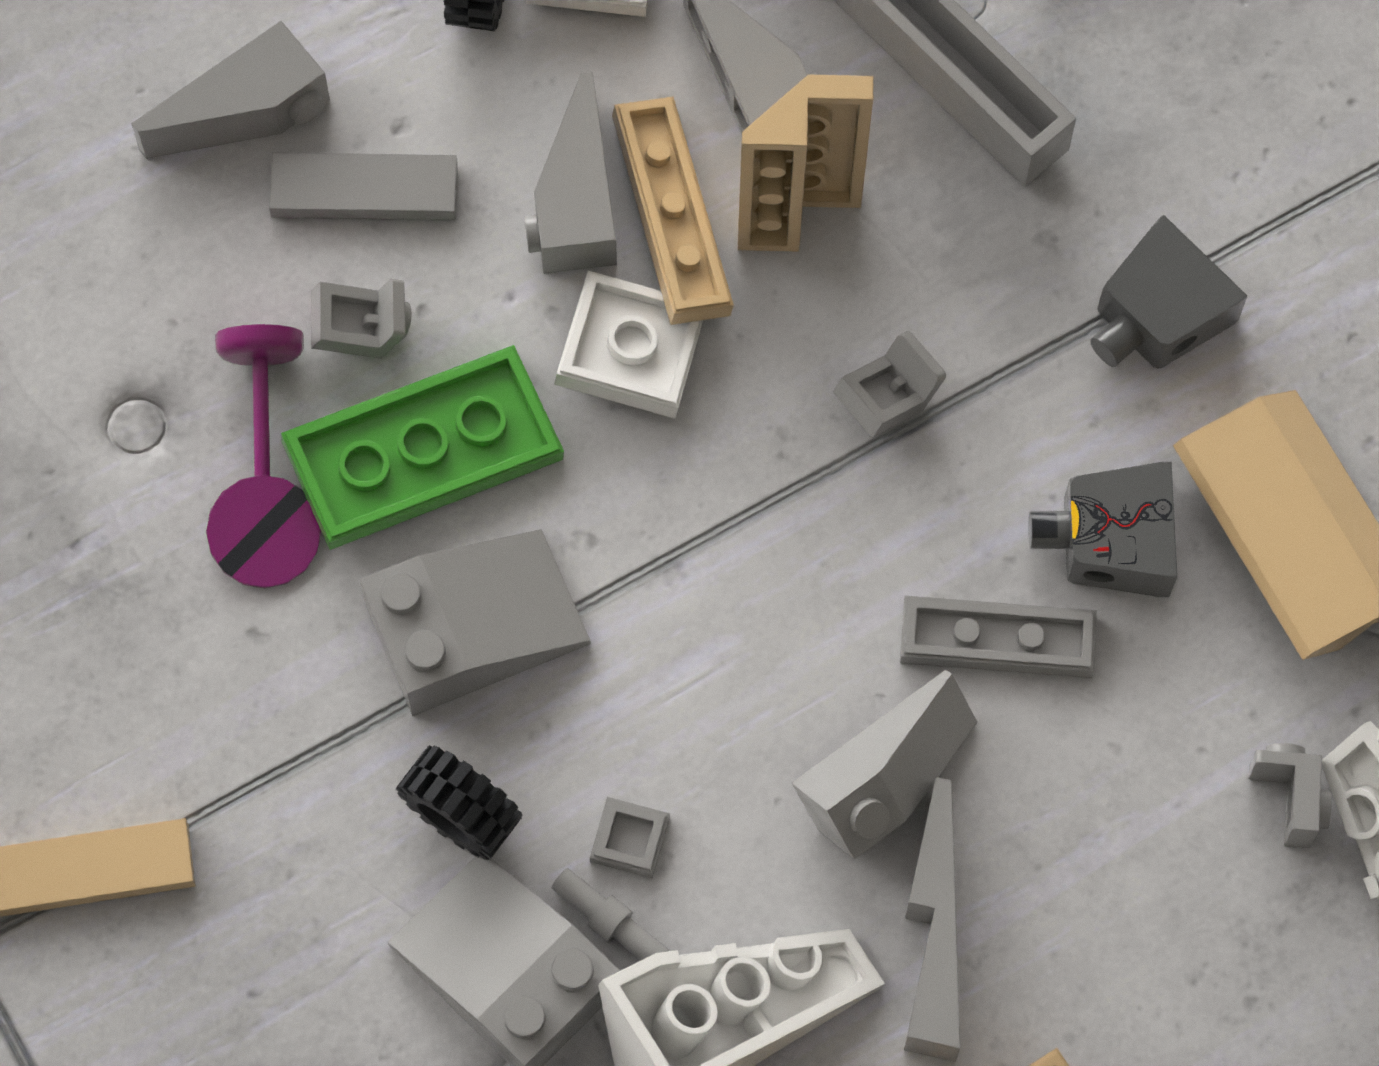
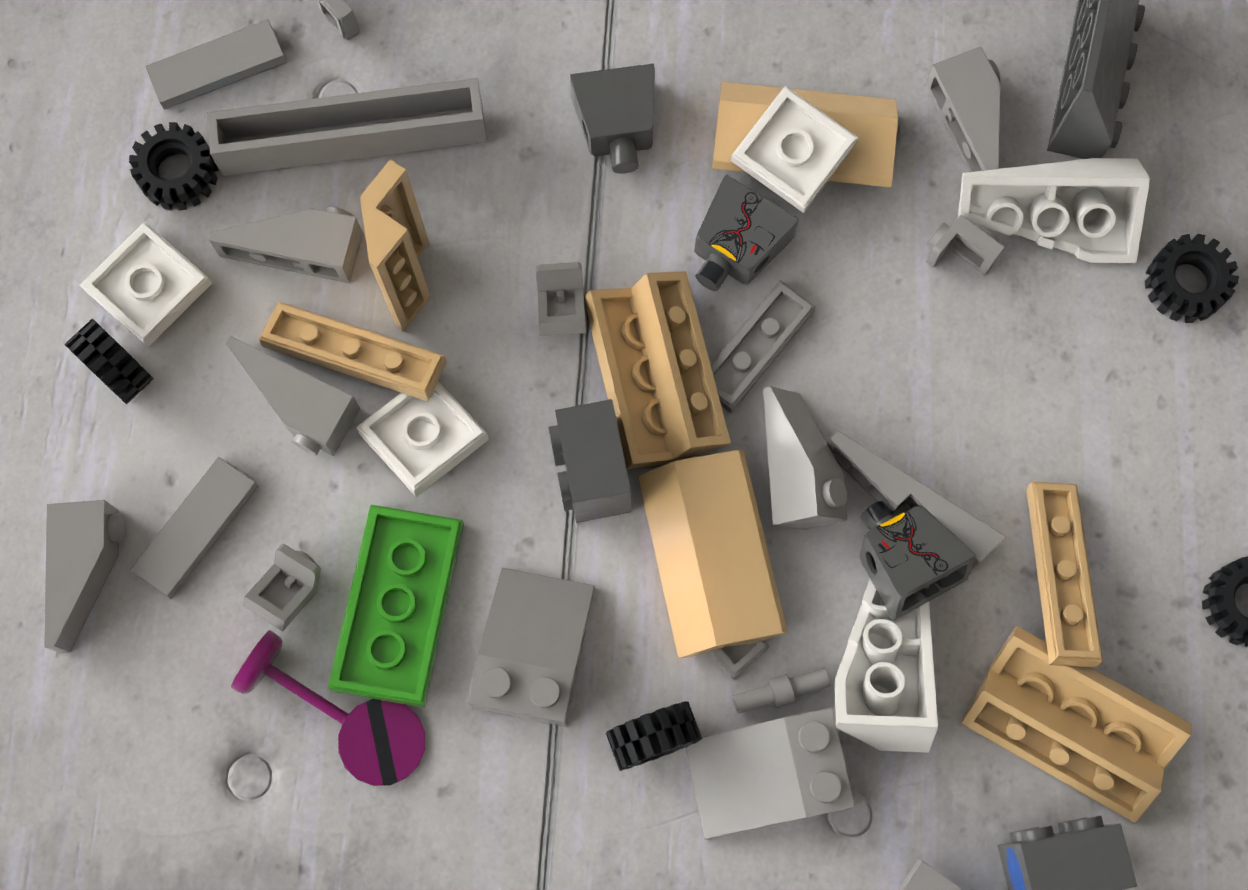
camera: 55 degrees left, 5 degrees up
(714, 739) = (711, 553): none -> tan slope
(720, 535) = (594, 461): none -> dark grey brick
(861, 960) = (911, 557): none -> dark grey torso
(884, 542) = (657, 370): none -> tan slope
(1257, 515) = (794, 149): none -> white plate

